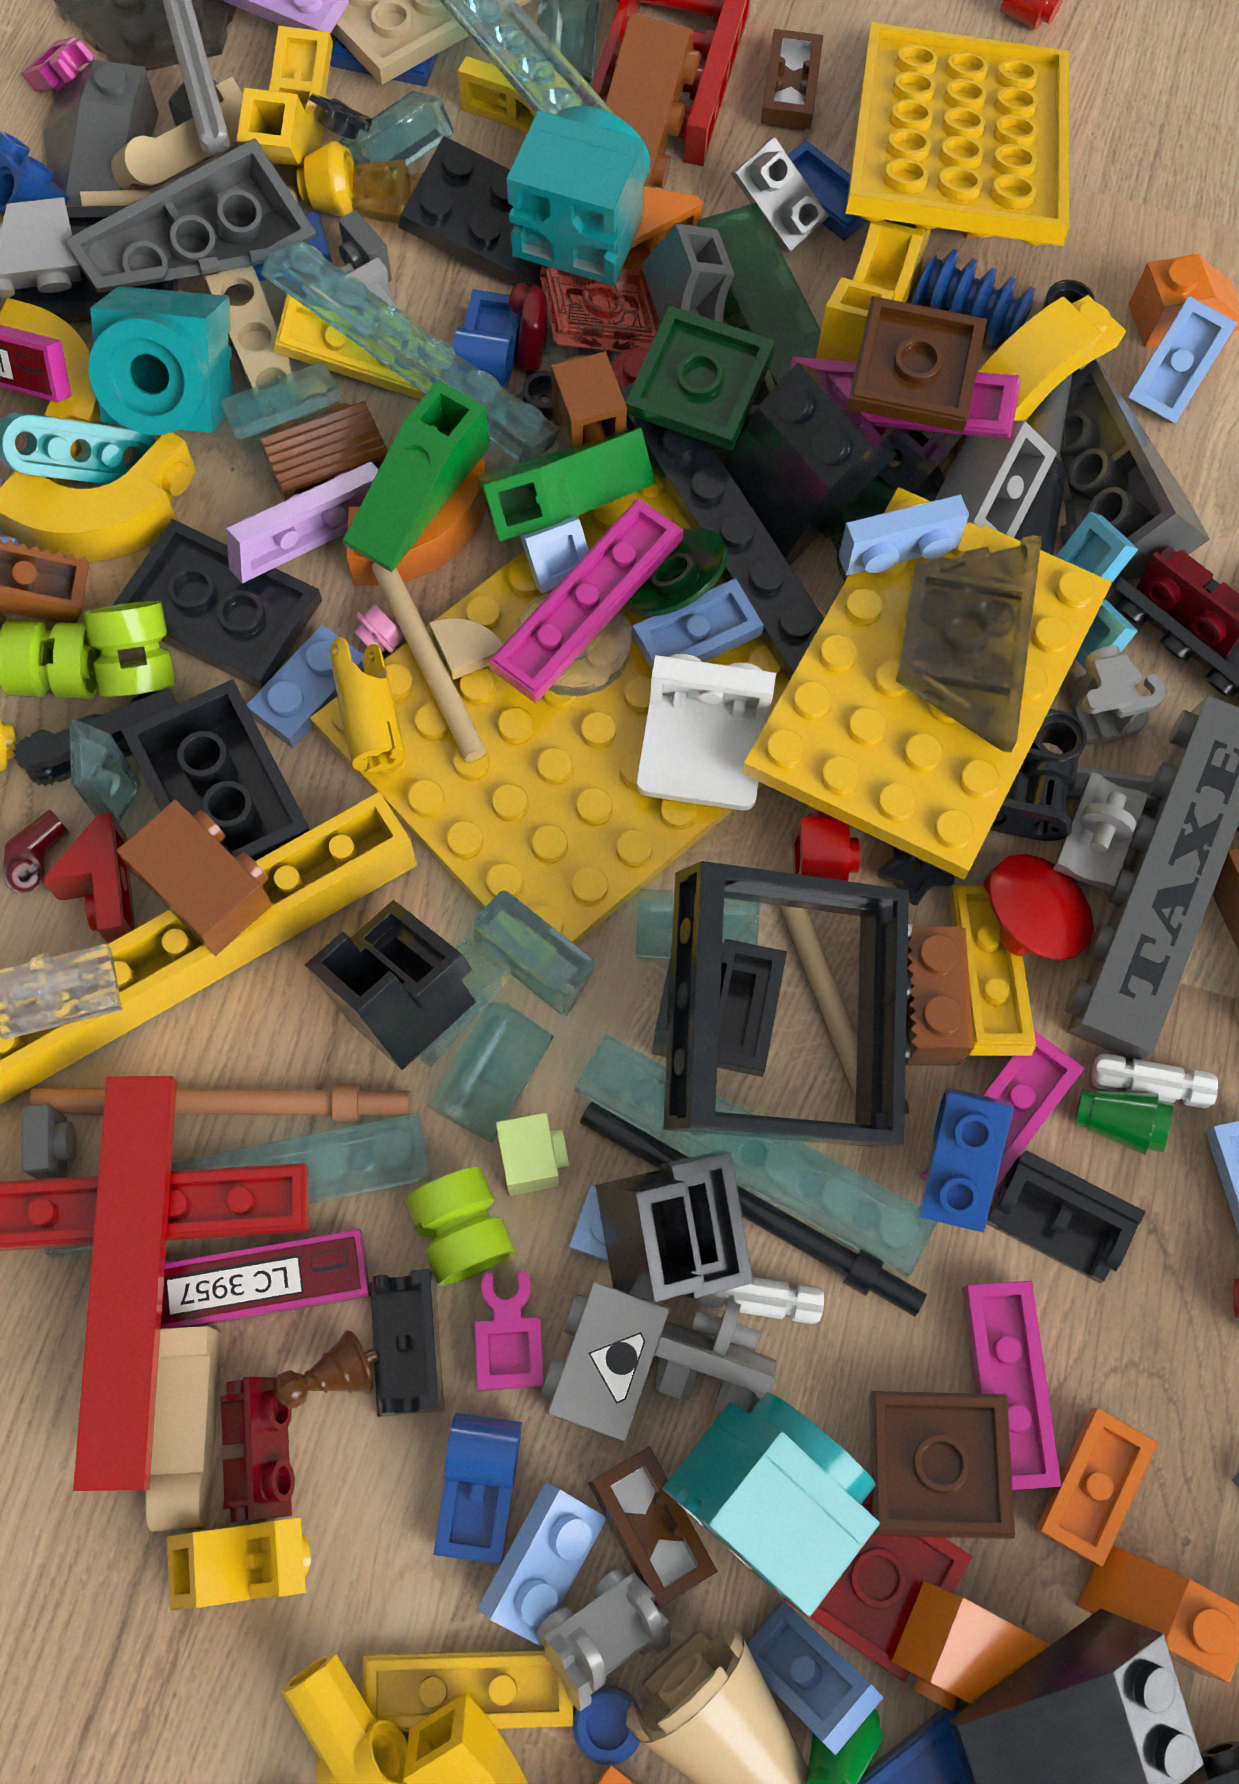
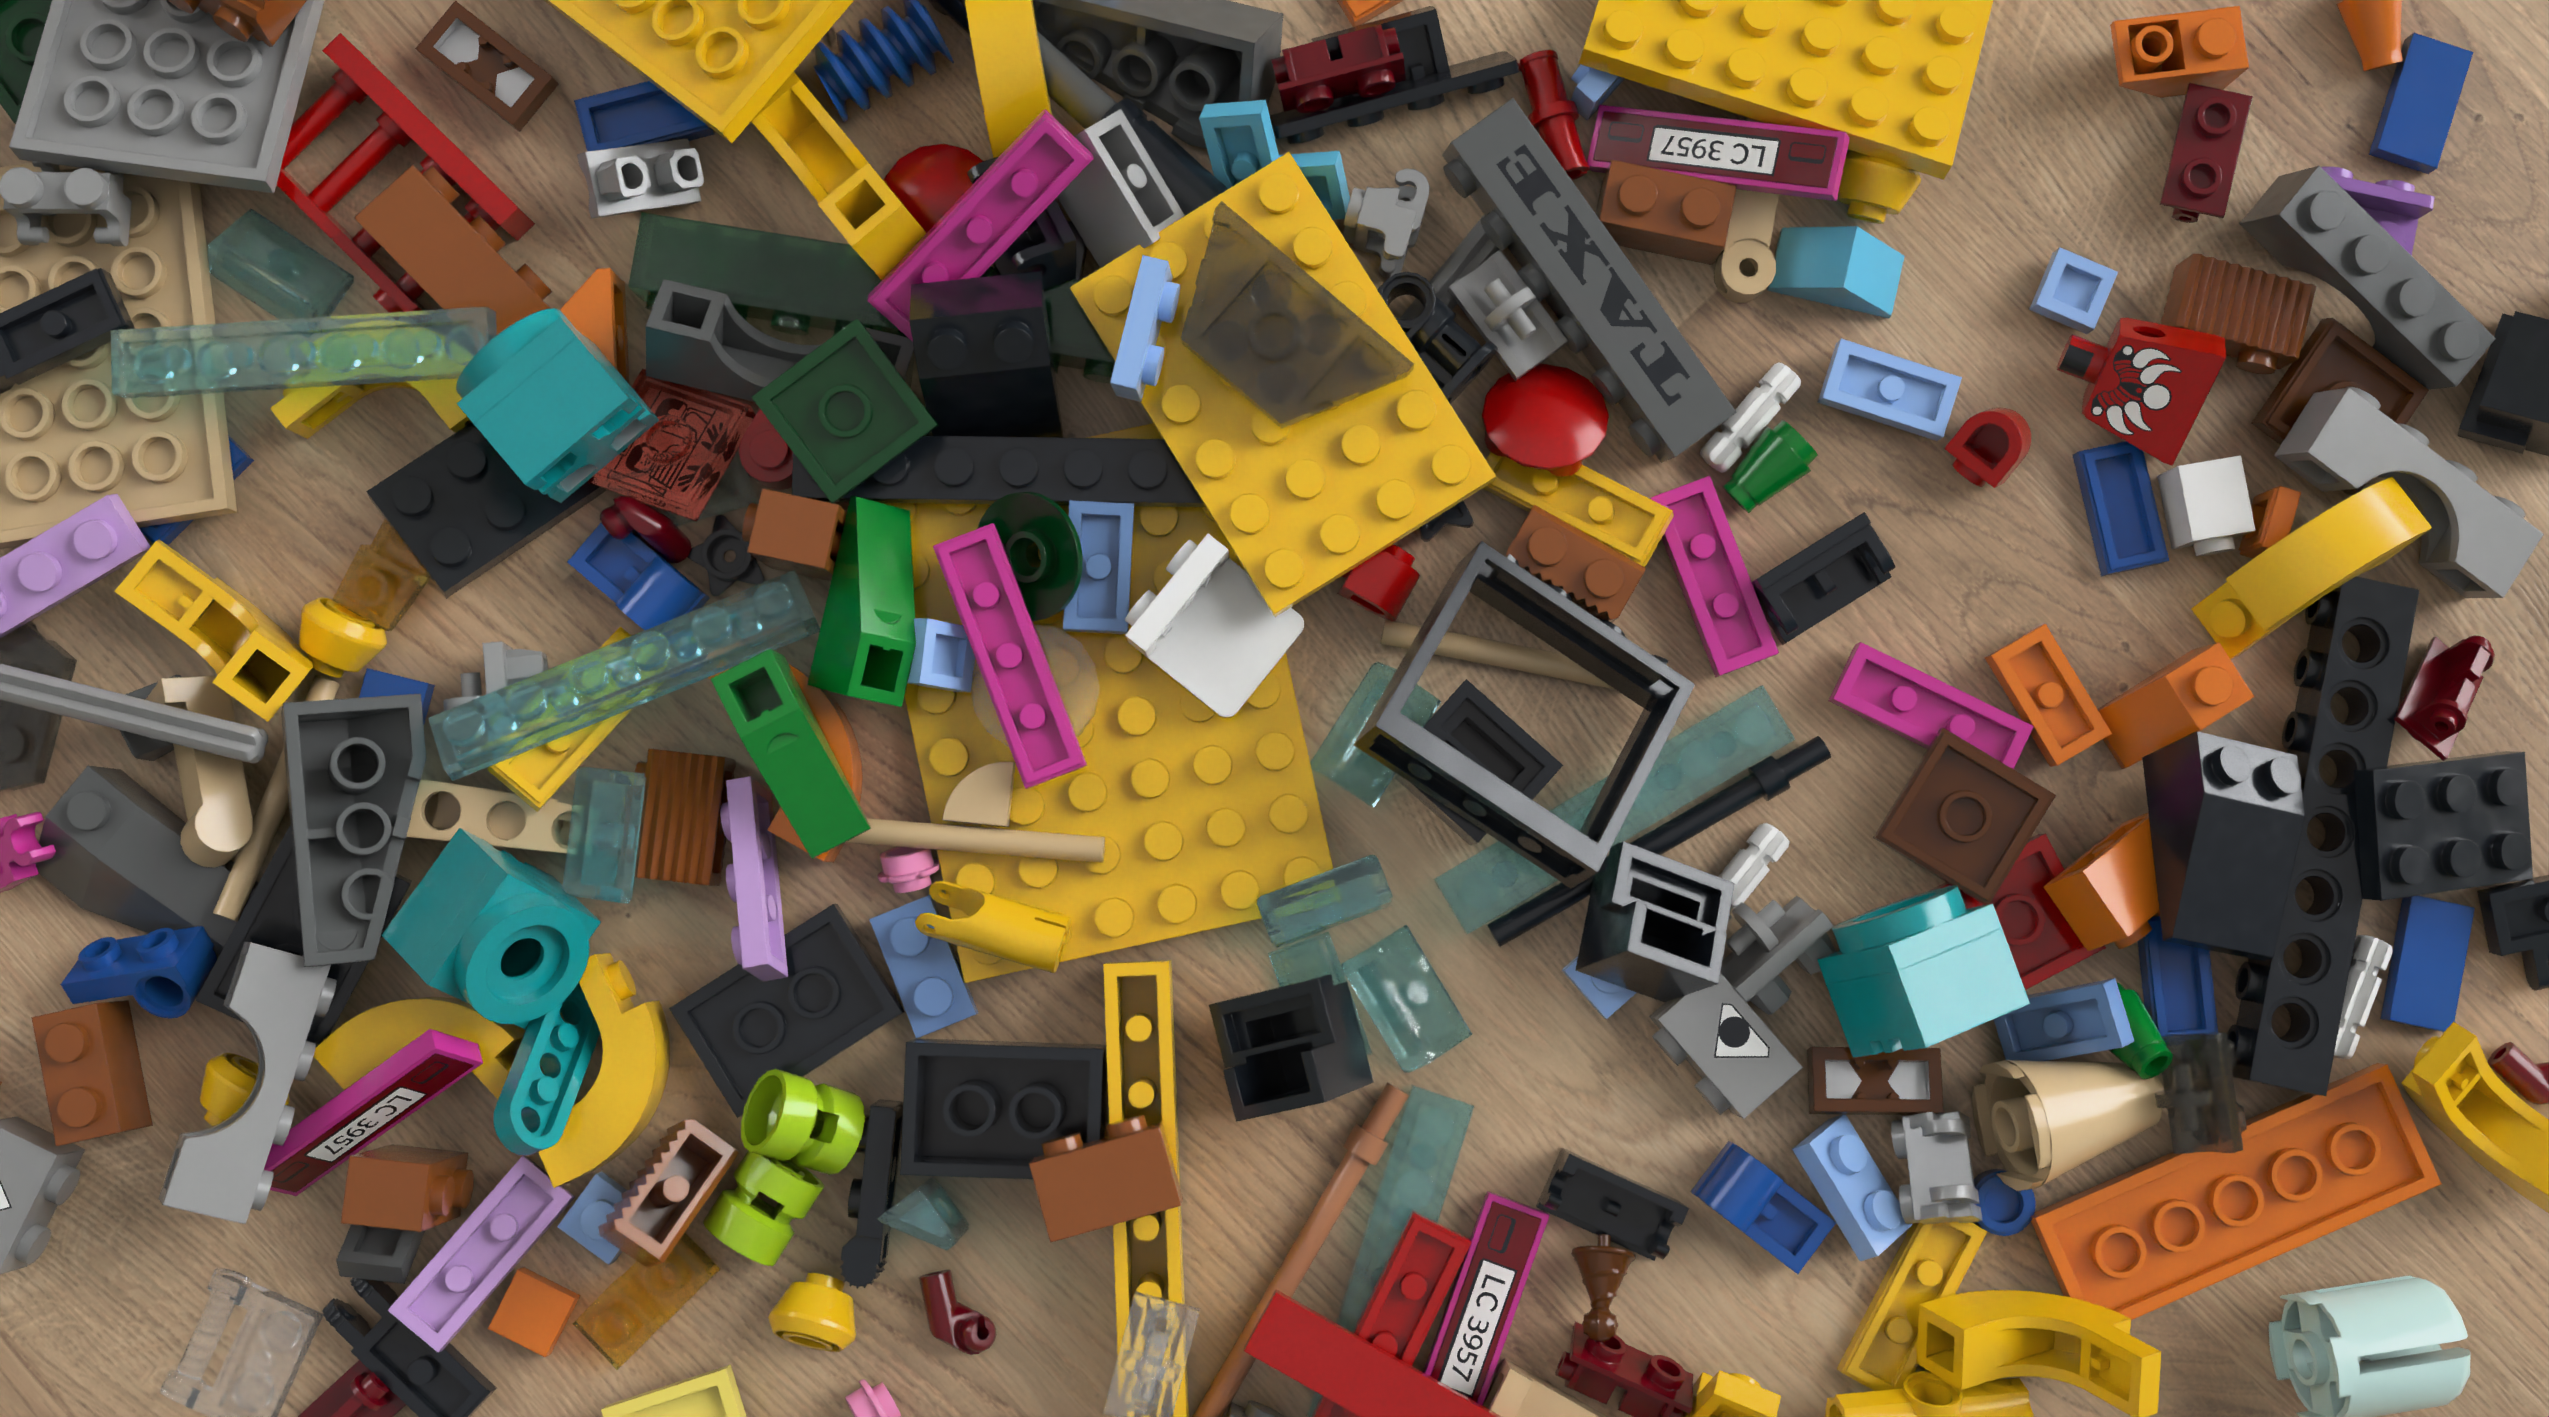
camera: 60 degrees left, 15 degrees up
(99, 874) = (1009, 1254): red slope -> none
(340, 117) = (266, 583): black plate -> none
(361, 242) = (448, 649): dark grey plate -> none
(402, 131) = (306, 528): clear light blue slope -> none
(459, 1226) = (1540, 1105): lime wheel -> none
(509, 1346) = (1660, 1117): dark pink plate -> none
(531, 1153) = (1509, 1007): yellowish green plate -> none
(917, 364) = (975, 202): reddish brown plate -> none
(965, 1159) = (1734, 636): blue plate -> none

